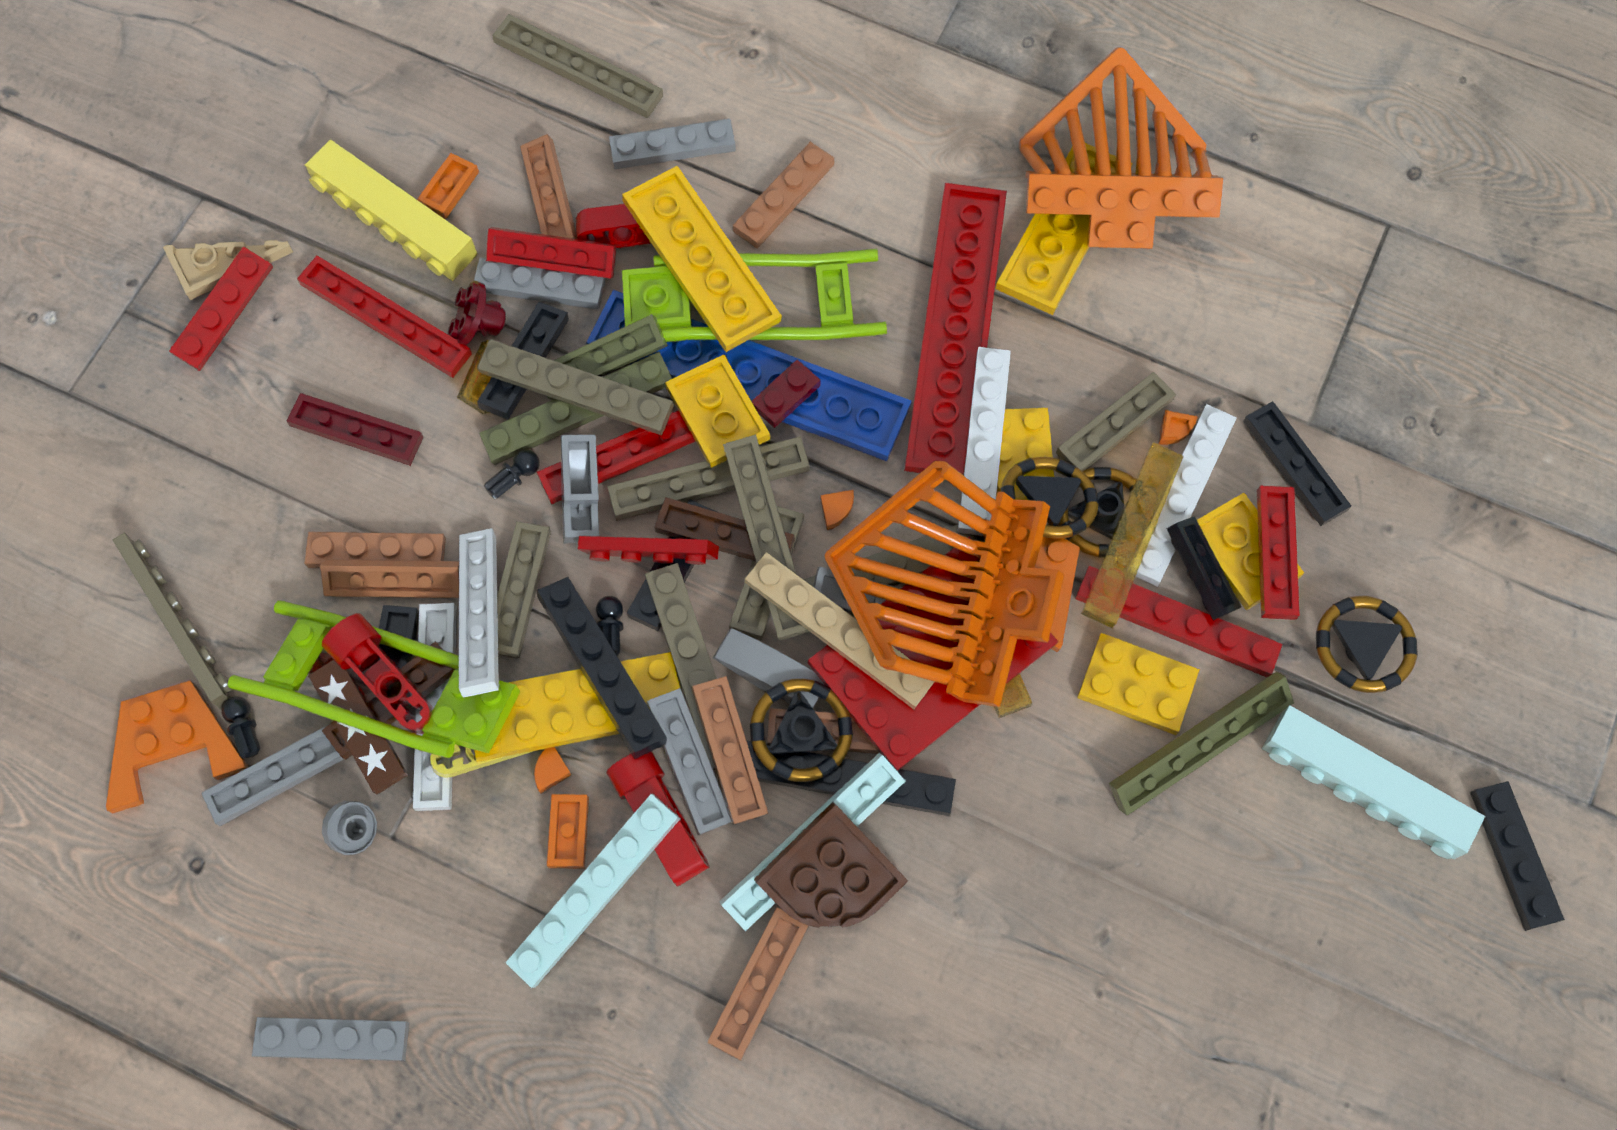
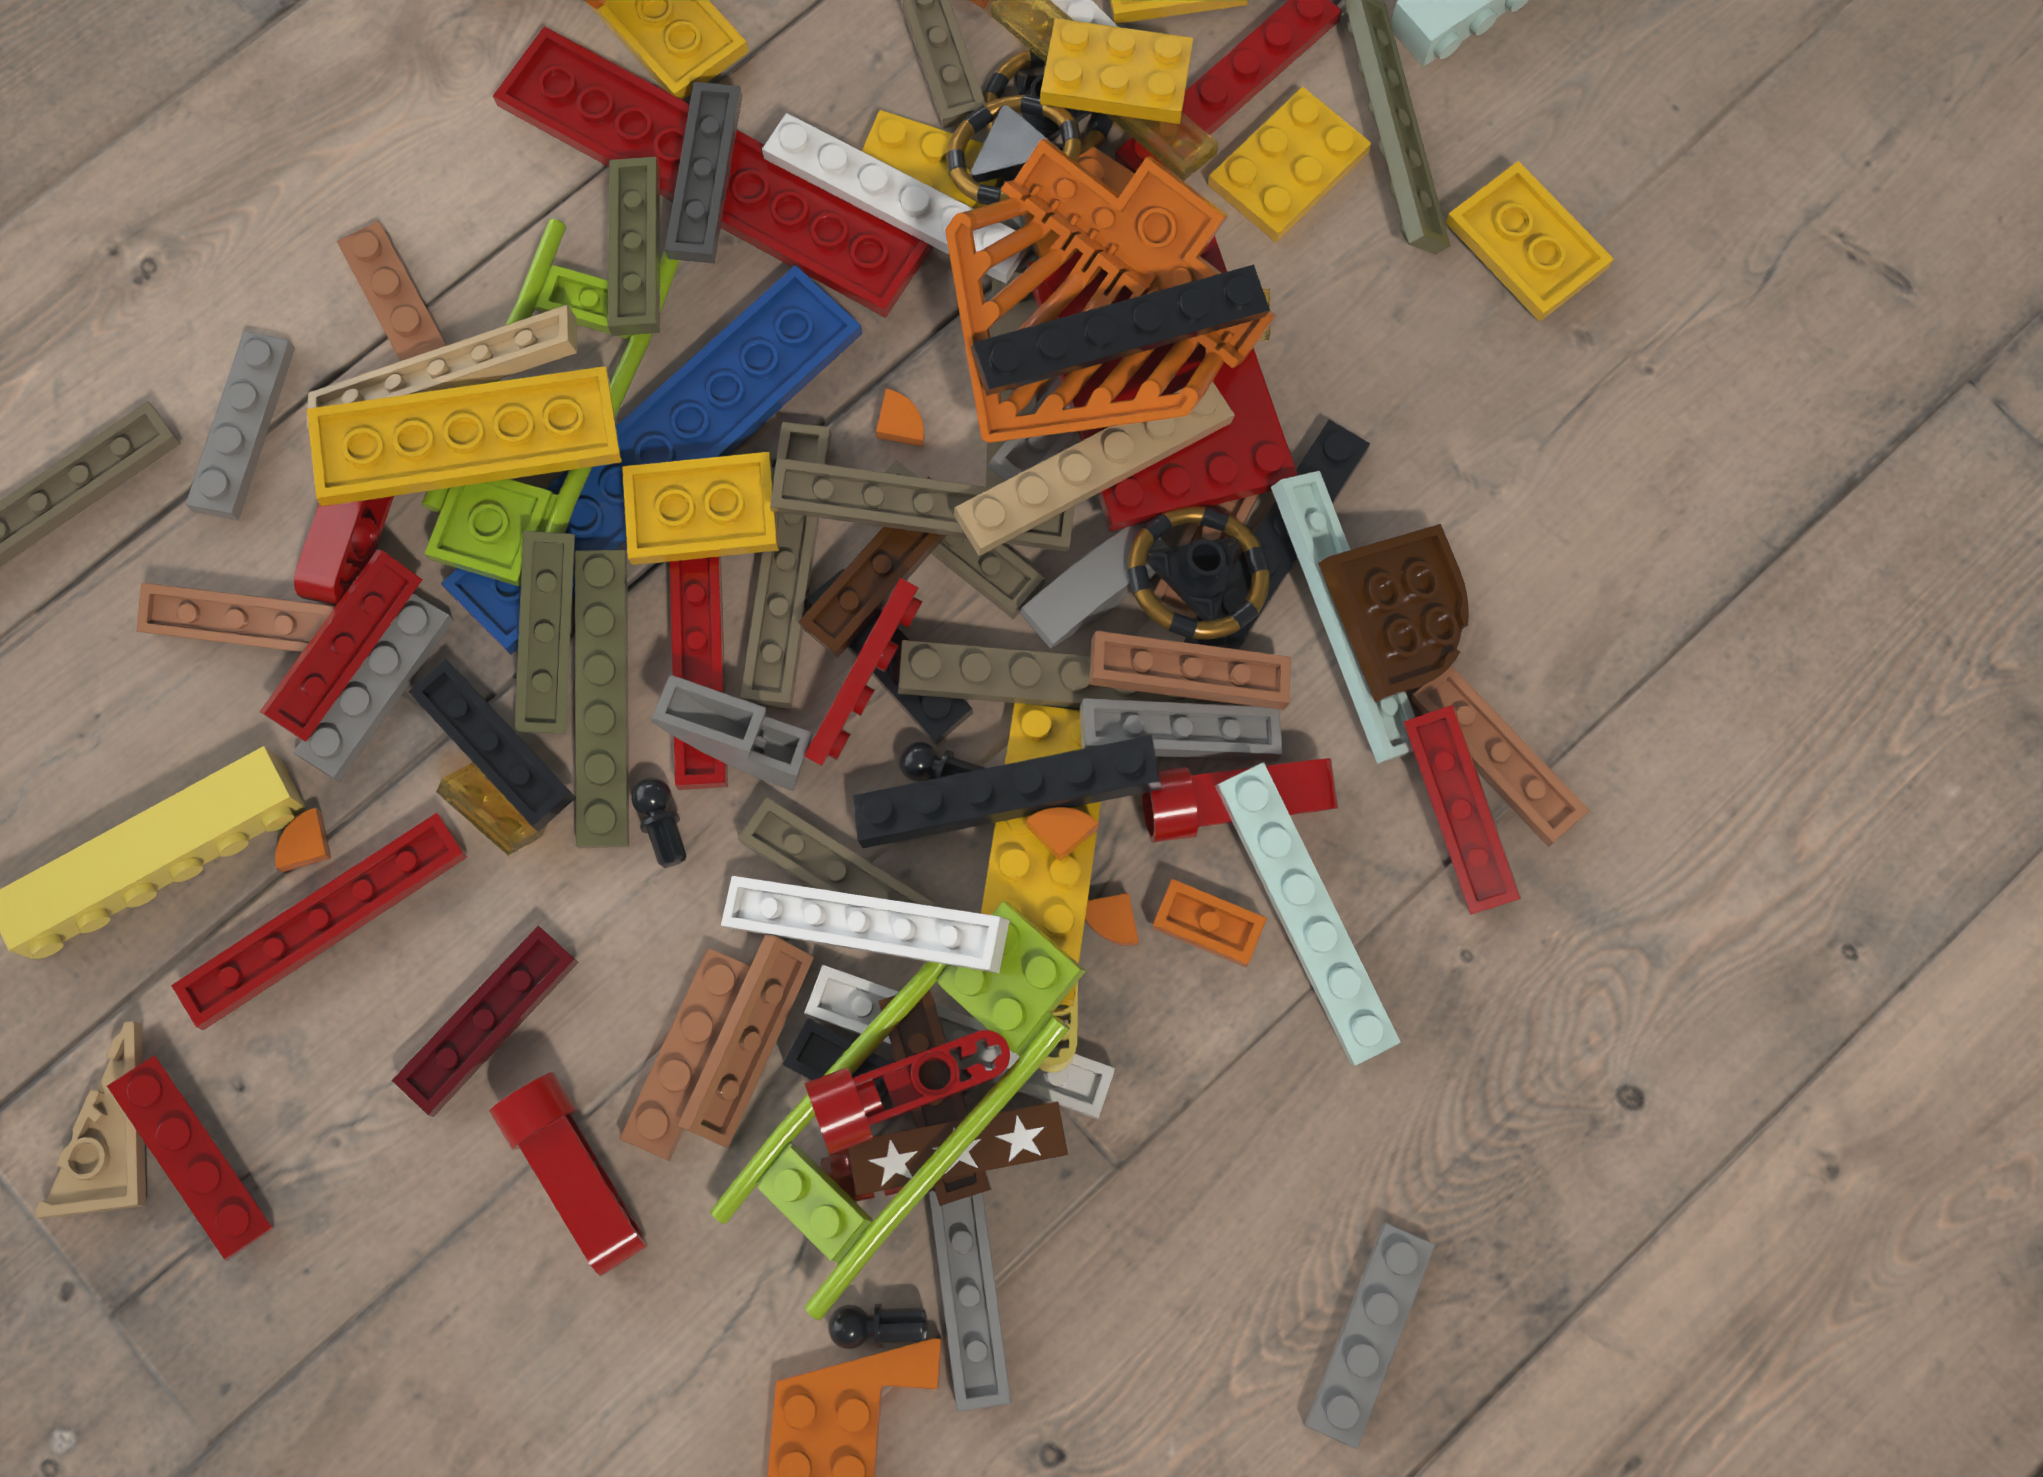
camera: 65 degrees left, 5 degrees up
(168, 608) = (648, 1379): dark tan plate -> none
(276, 513) = (542, 1126): none -> red beam
(349, 827) = (1092, 1213): light grey plate -> none
(429, 287) = (302, 842): none -> orange tile
(448, 185) = (147, 755): orange plate -> none
(476, 314) = (386, 786): dark red plate -> none
(576, 387) = (575, 682): dark tan plate -> none
(586, 708) = (1061, 829): none -> orange tile
(705, 969) = (1462, 809): none -> red plate
(749, 235) = (463, 363): none -> tan plate
(786, 393) = (713, 412): dark red plate -> none
(876, 301) = (634, 246): none -> olive plate
(931, 605) = (1119, 330): none -> black plate
(946, 320) = (703, 172): none -> dark grey plate
(1137, 538) = (1116, 71): none -> yellow plate
(1155, 869) = (1529, 241): none -> yellow plate
(1203, 568) = (1216, 23): black plate -> none

